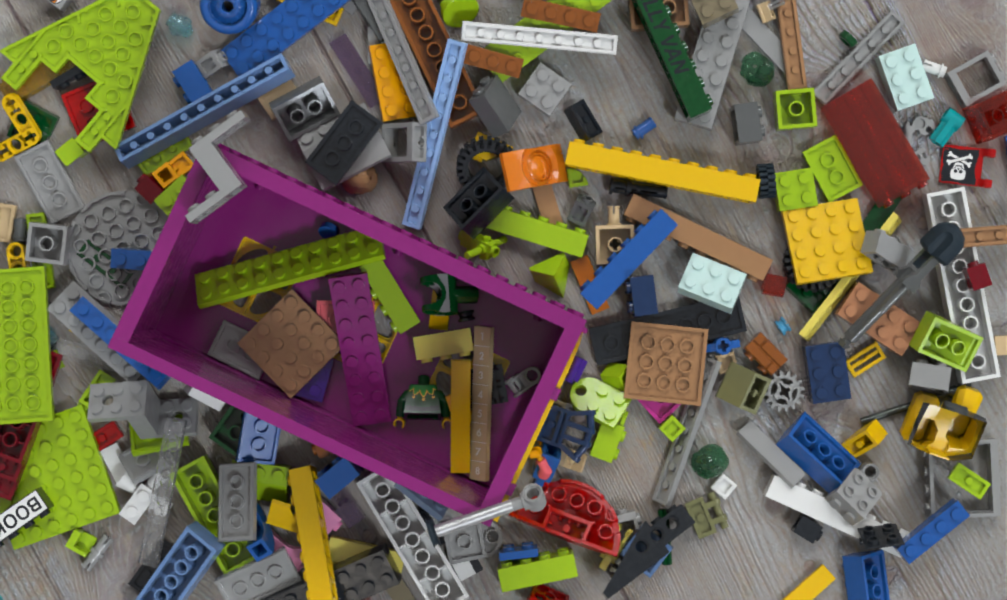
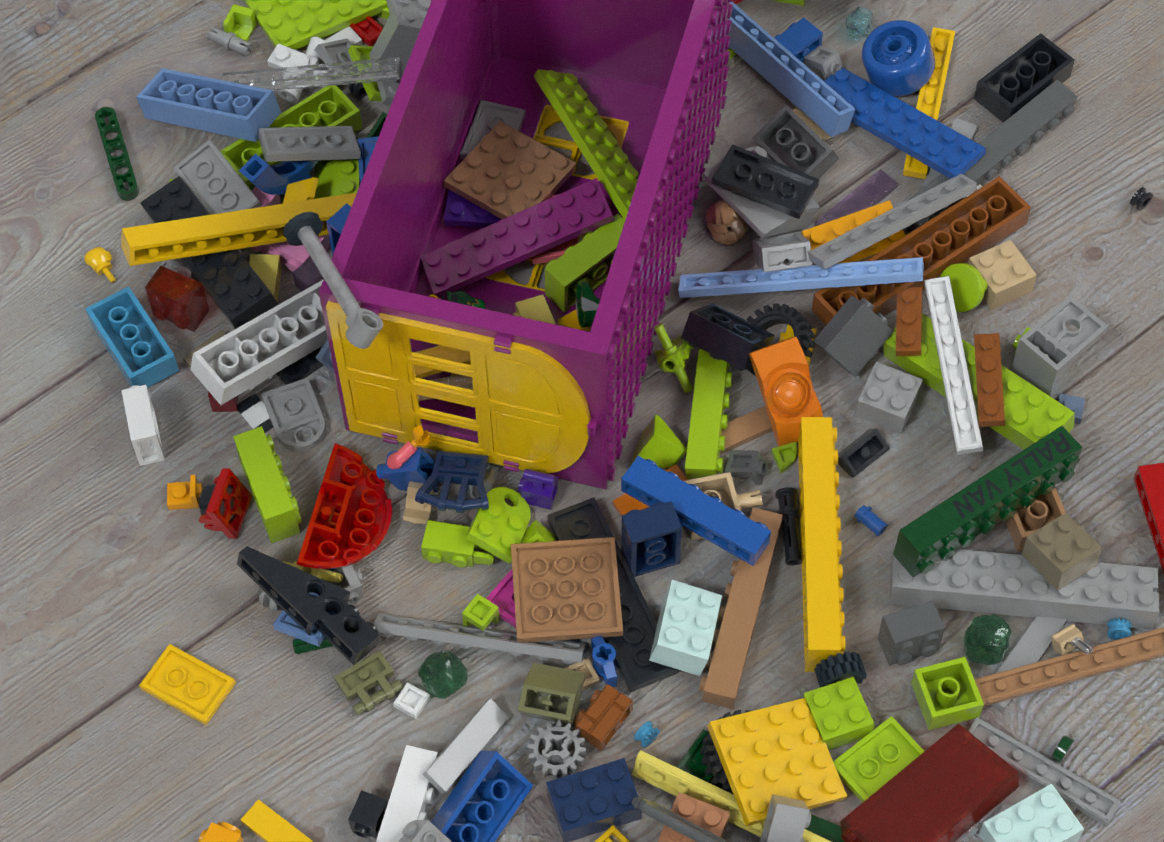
camera: 80 degrees right, 30 degrees down
(512, 552) = (289, 458): blue plate -> none
(774, 285) = (699, 711): clear red piece -> none

